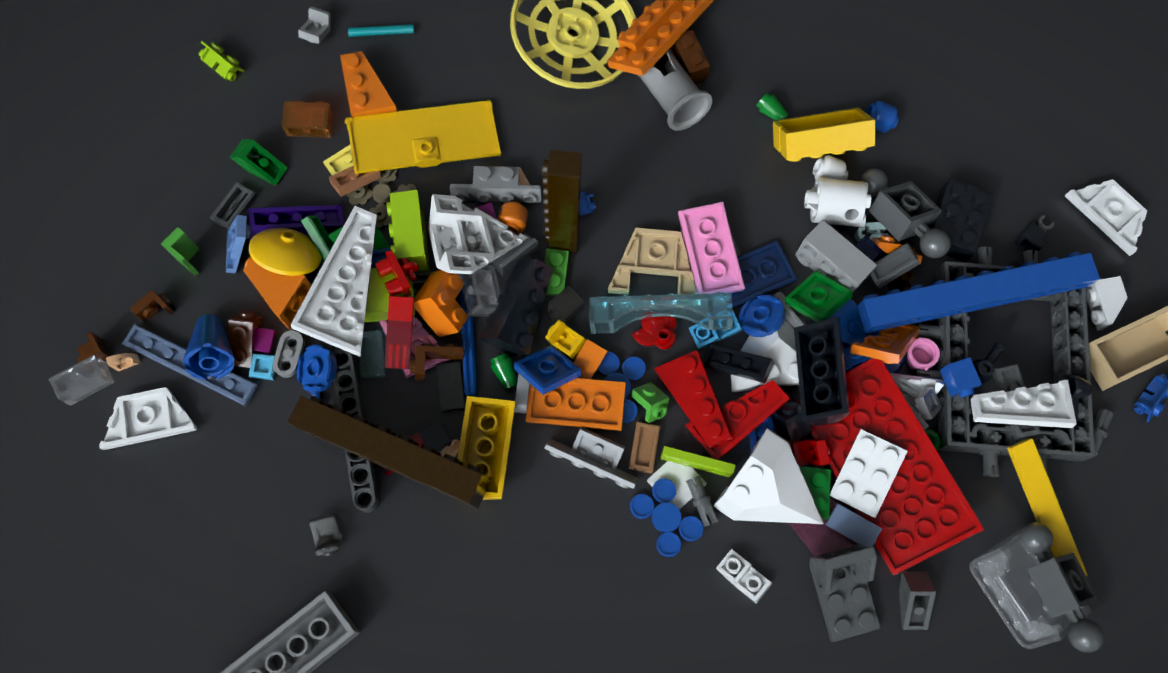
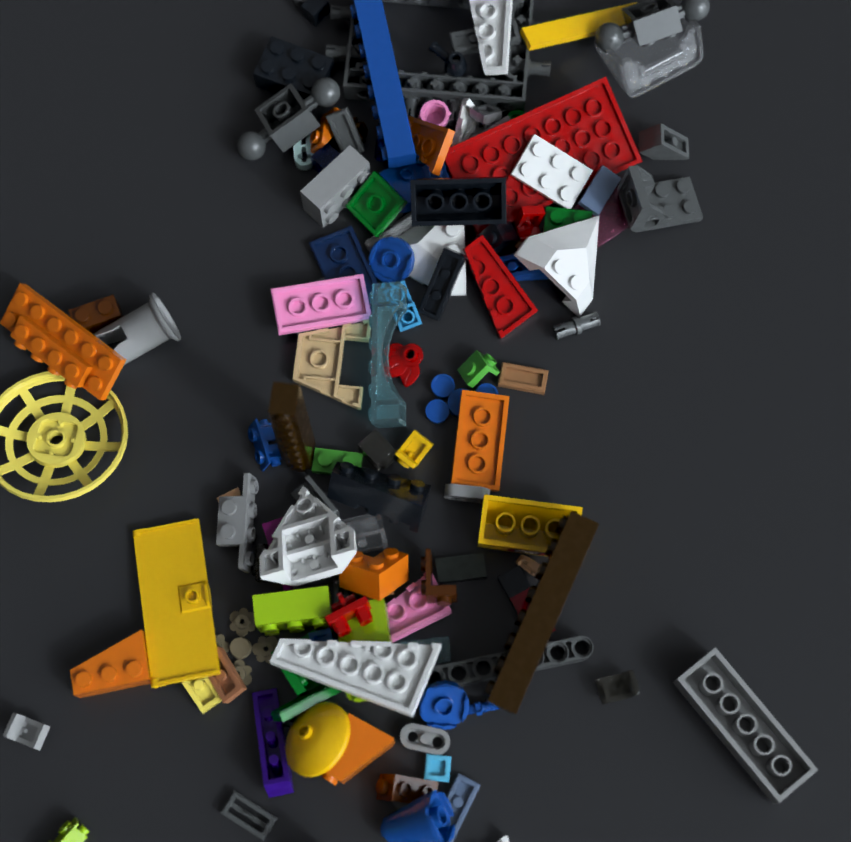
camera: 85 degrees left, 0 degrees up
(235, 241) = (298, 803): medium blue wing -> none
(258, 161) = (197, 788): green slope -> none
(264, 340) = (409, 767): magenta tile -> none
(307, 119) = (146, 733): clear orange brick -> none
(381, 30) = (34, 656): teal bar -> none
(399, 332) = (409, 613): tile -> none
(469, 356) = (437, 549): blue axle -> none
(504, 370) = (444, 512): green cone -> none
(514, 216) = (275, 503): orange head -> none
(547, 369) = (447, 466): blue tile -> none
(589, 359) = (437, 430): orange tile -> none
(595, 454) = (532, 423): light grey bracket -> none
(666, 517) = (591, 360): blue piece -> none
(678, 475) = (555, 354): white sticker -> none
(694, 393) = (471, 326): red wing -> none
(697, 461) = (538, 327): lime tile -> none
(743, 576) = (645, 292): white slope -> none
(772, 107) = (159, 238): green cone -> none
(824, 134) = (198, 187): yellow piece -> none
(830, 168) = (236, 186): white head -> none
(838, 202) = (273, 179): white cylinder -> none
(884, 115) = (176, 133): blue head -> none
(961, 378) = (464, 81): blue brick -> none

